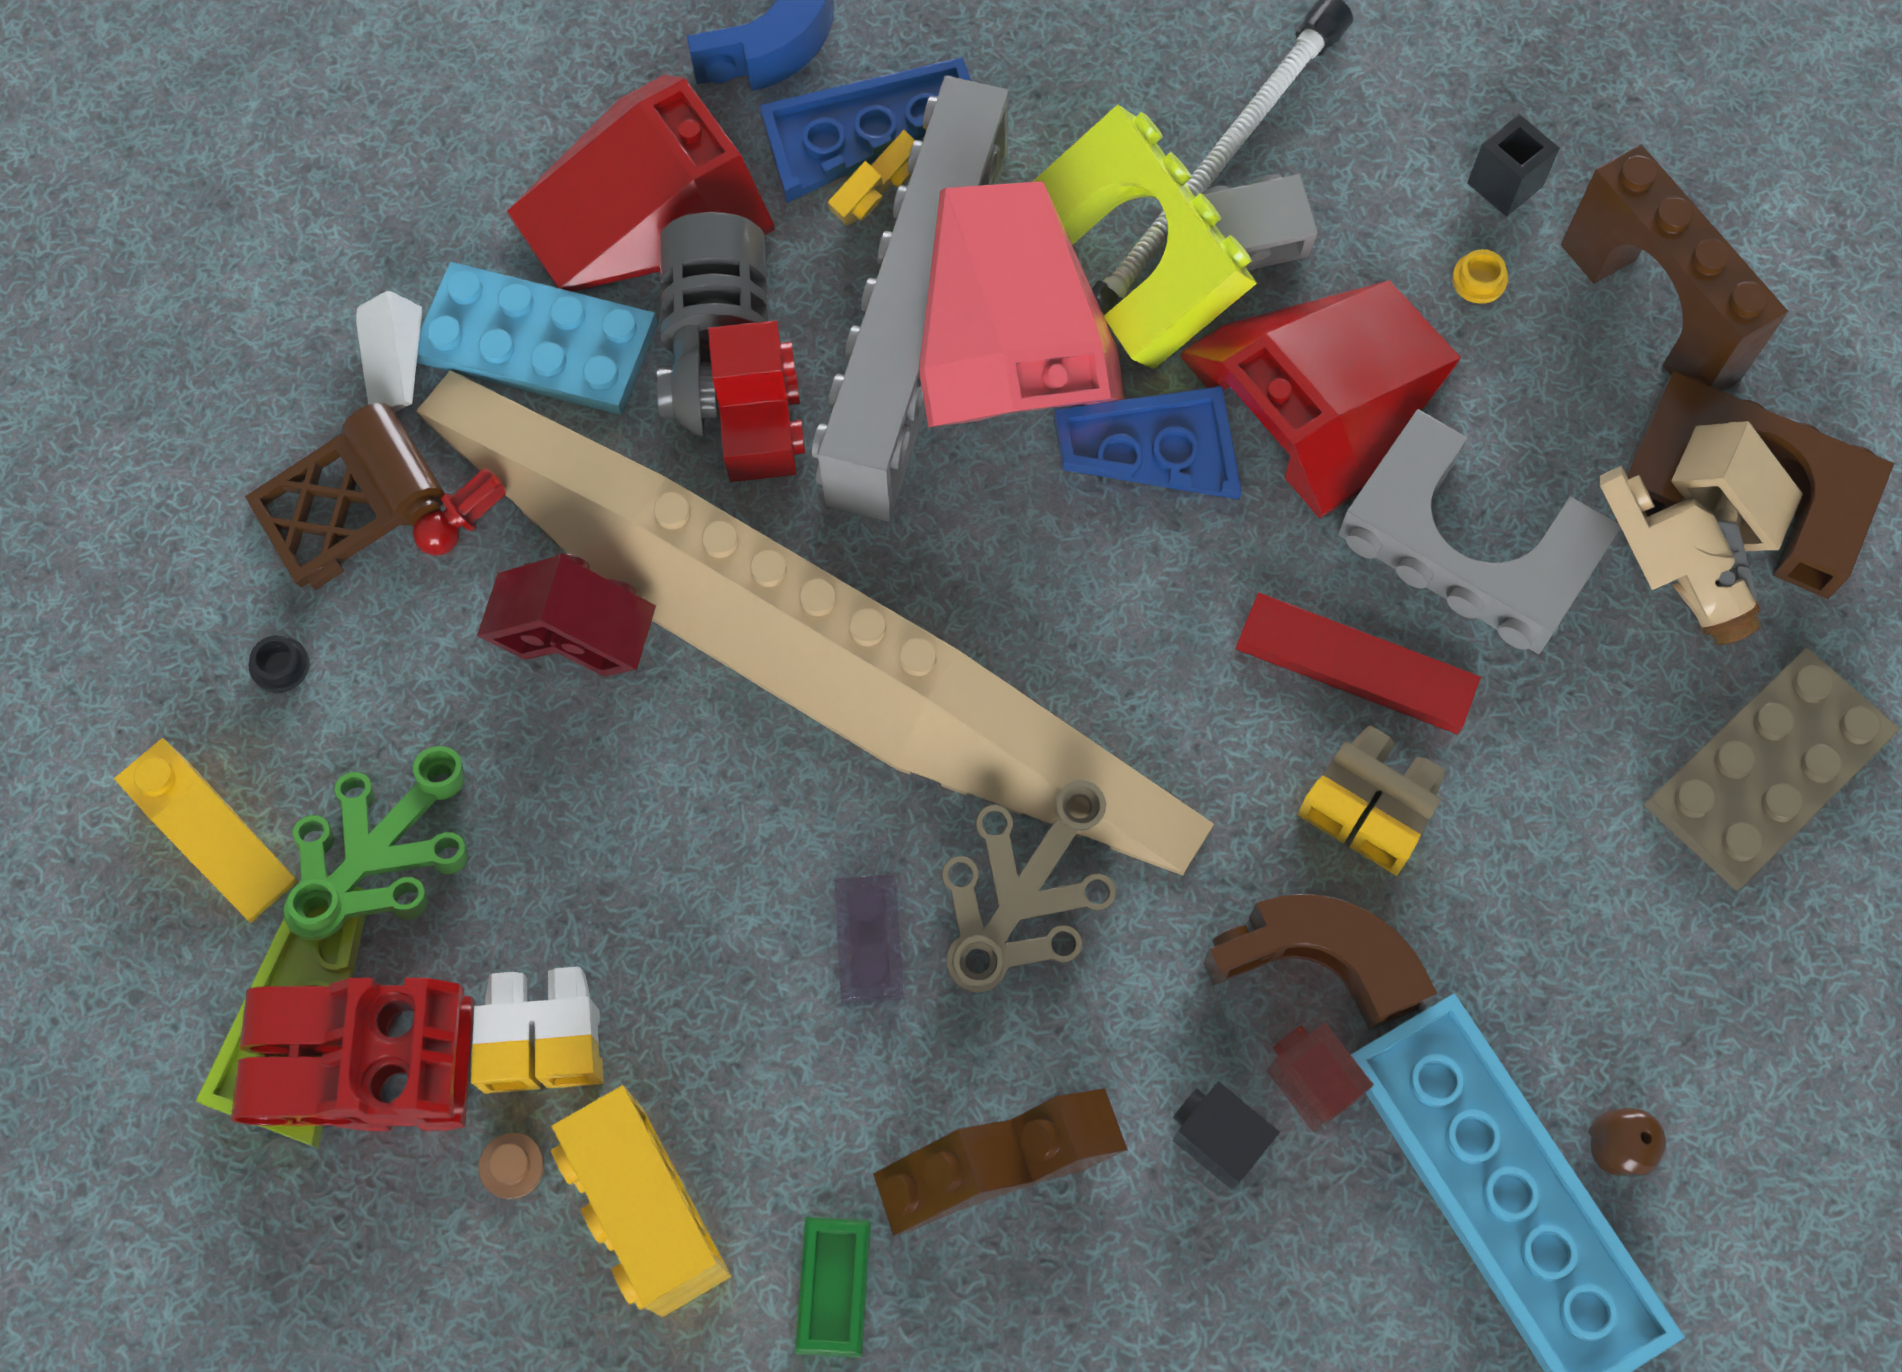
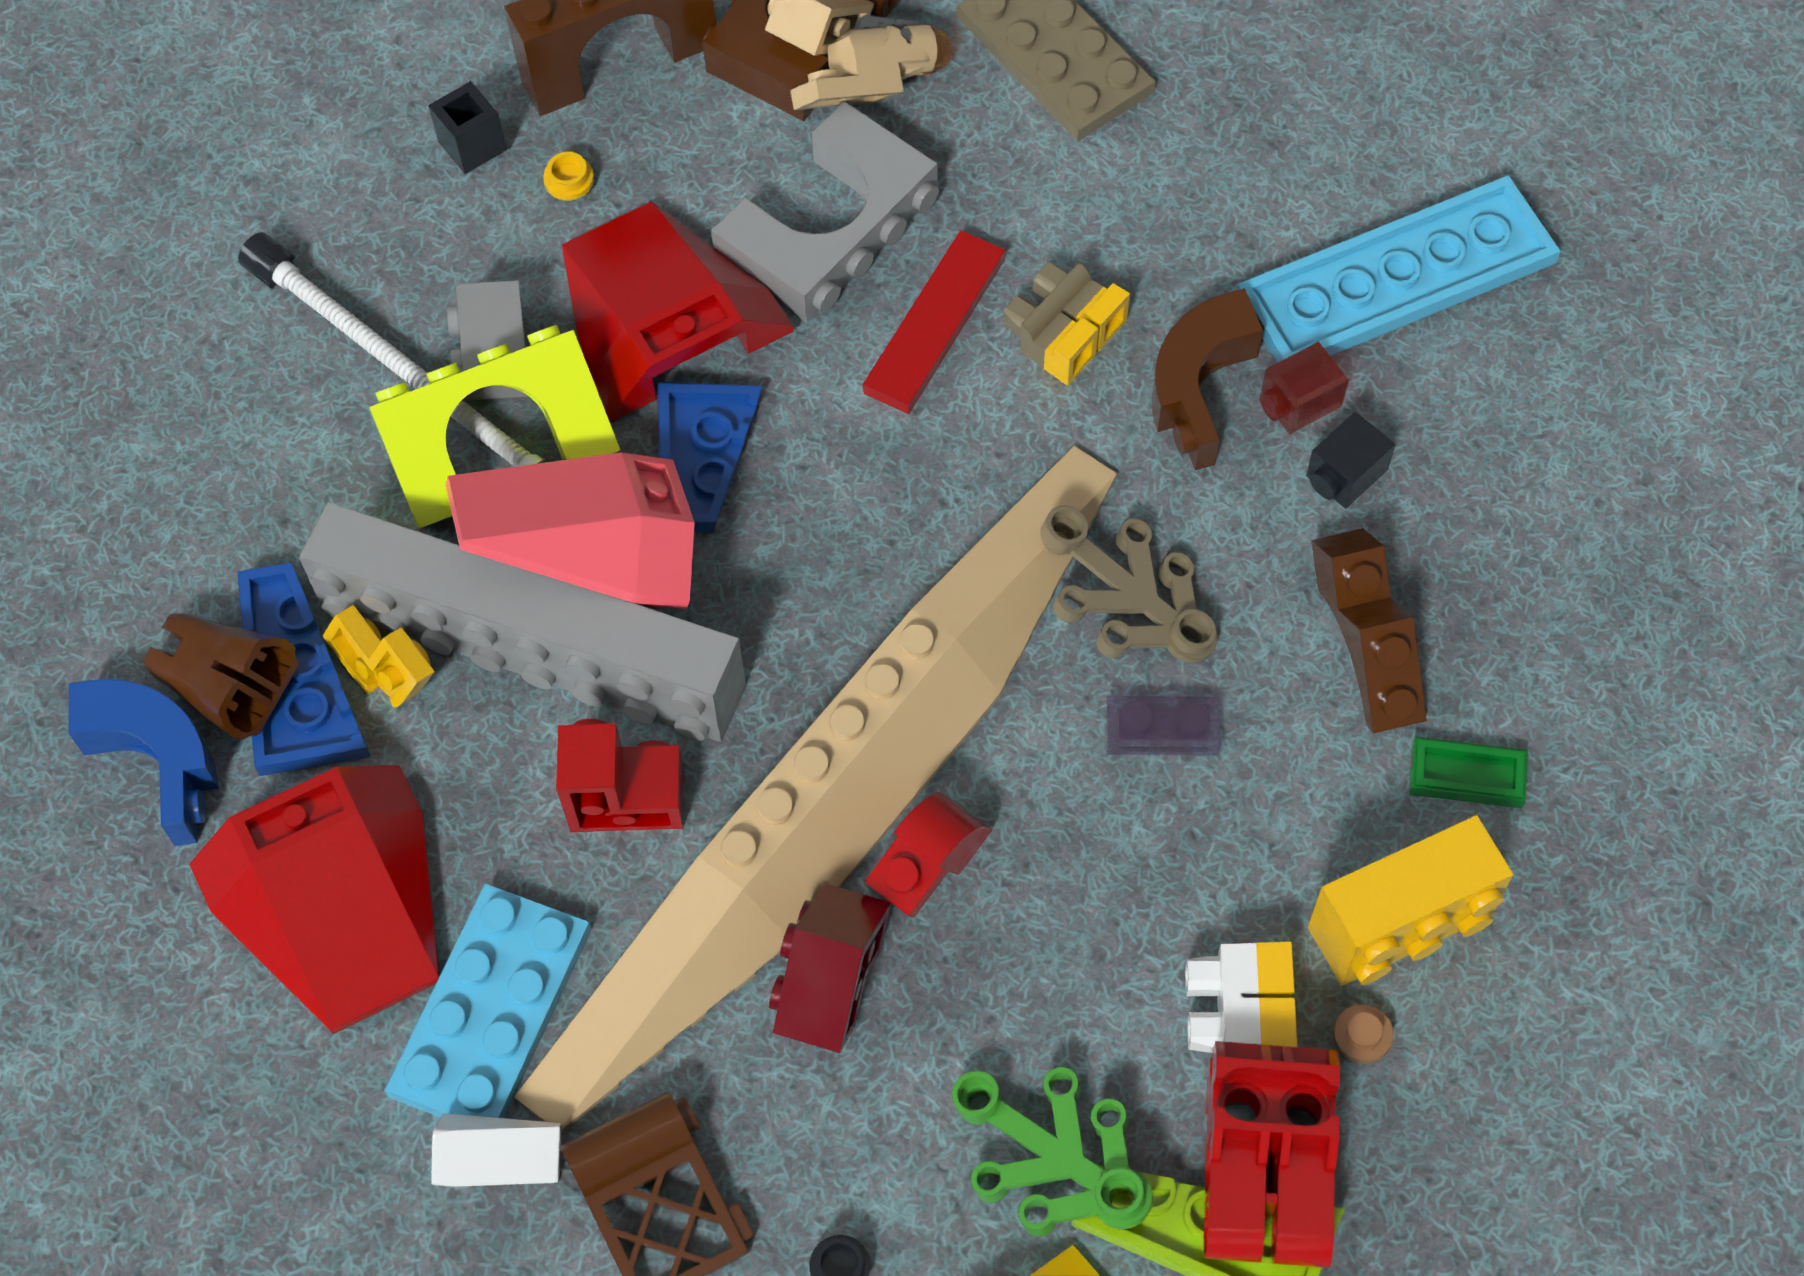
camera: 85 degrees left, 5 degrees down
(439, 530) = (686, 1074): red axle -> none
(698, 699) = (930, 843): none -> red brick
(707, 279) = (515, 818): dark grey cylinder -> none
(848, 60) = (224, 671): none -> reddish brown piece
(1627, 1142) = (1359, 189): reddish brown piece -> none

